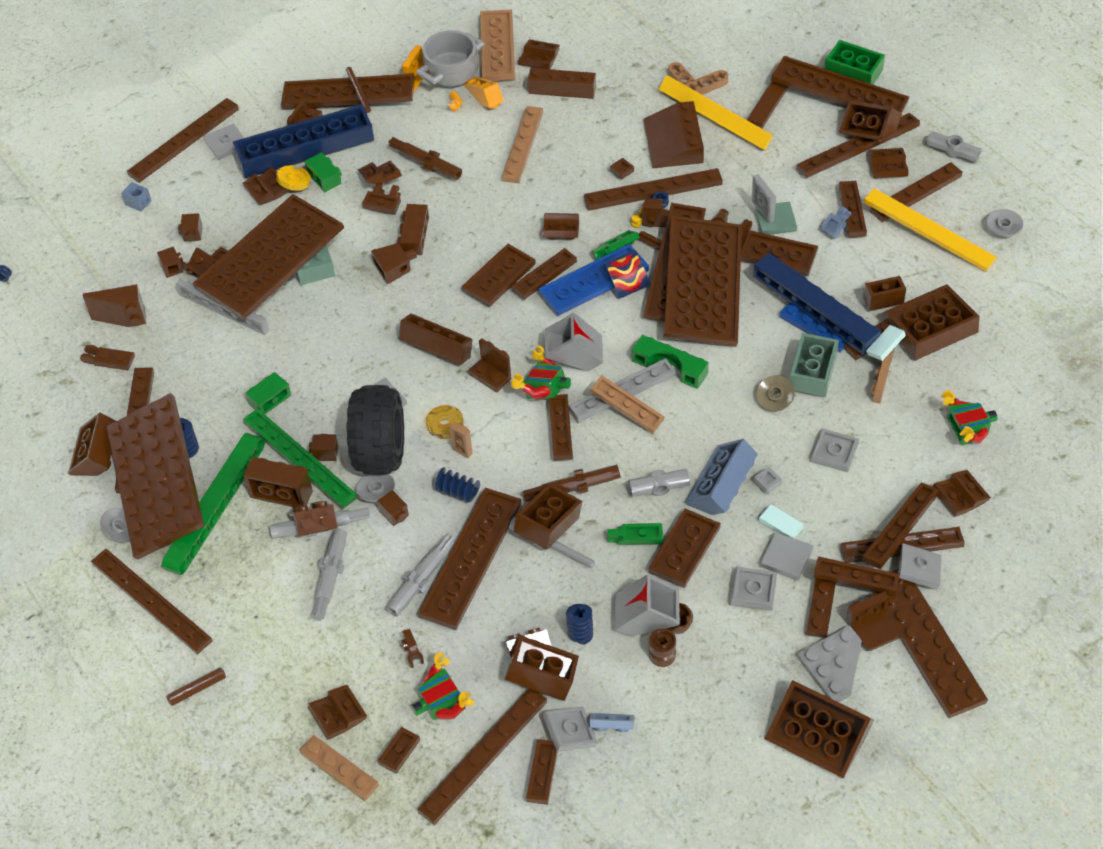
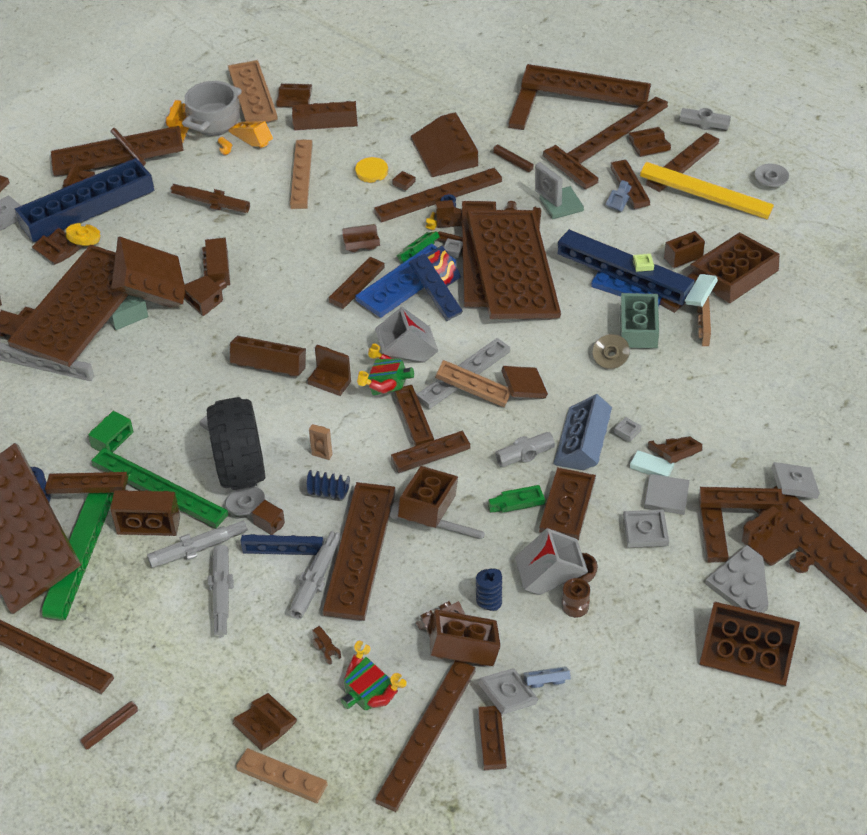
camera: 15 degrees left, 5 degrees down
(231, 442) = (86, 482): none -> reddish brown plate
(315, 518) = (192, 539): reddish brown bracket -> none
(323, 172) = (111, 224): green brick -> none
(324, 447) = (182, 472): reddish brown brick -> none
(339, 234) = (148, 273): none -> reddish brown slope
(380, 174) = (171, 217): reddish brown slope -> none
(381, 202) = (178, 243): reddish brown plate -> none
(397, 538) = (281, 544): none -> dark blue plate
(399, 750) = (340, 745): reddish brown plate -> none
(441, 413) = (293, 422): clear yellow tile -> none
(498, 275) = (312, 290): reddish brown plate -> none
(564, 467) = (430, 451): none -> reddish brown plate
(579, 481) = (447, 460): reddish brown piece -> none
(593, 150) = (371, 169): none -> yellow tile
(618, 293) = (435, 287): none -> dark blue plate
(649, 252) = (454, 247): none -> light grey plate
(650, 351) = (523, 342): green arch -> none
(679, 411) = (524, 382): none -> reddish brown tile
(716, 79) = (450, 103): medium nougat beam -> none
(717, 112) = (479, 121): yellow tile -> none
(744, 163) = (513, 158): none -> reddish brown axle
(791, 252) = (554, 227): reddish brown plate -> none
(796, 180) = (570, 167): none -> reddish brown plate
(810, 509) = (676, 449): none -> reddish brown wing
(833, 303) = (643, 262): none -> yellowish green tile
(834, 450) = (681, 393): light grey tile -> none
(855, 62) = (593, 60): green brick -> none
(869, 121) = (623, 106): reddish brown slope -> none
(895, 657) = (801, 562): none -> reddish brown plate
(900, 525) = (766, 447): reddish brown plate -> none
(927, 540) = (762, 468): reddish brown tile -> none
(961, 493) = (809, 410): reddish brown slope -> none
(968, 419) = (795, 345): torso -> none

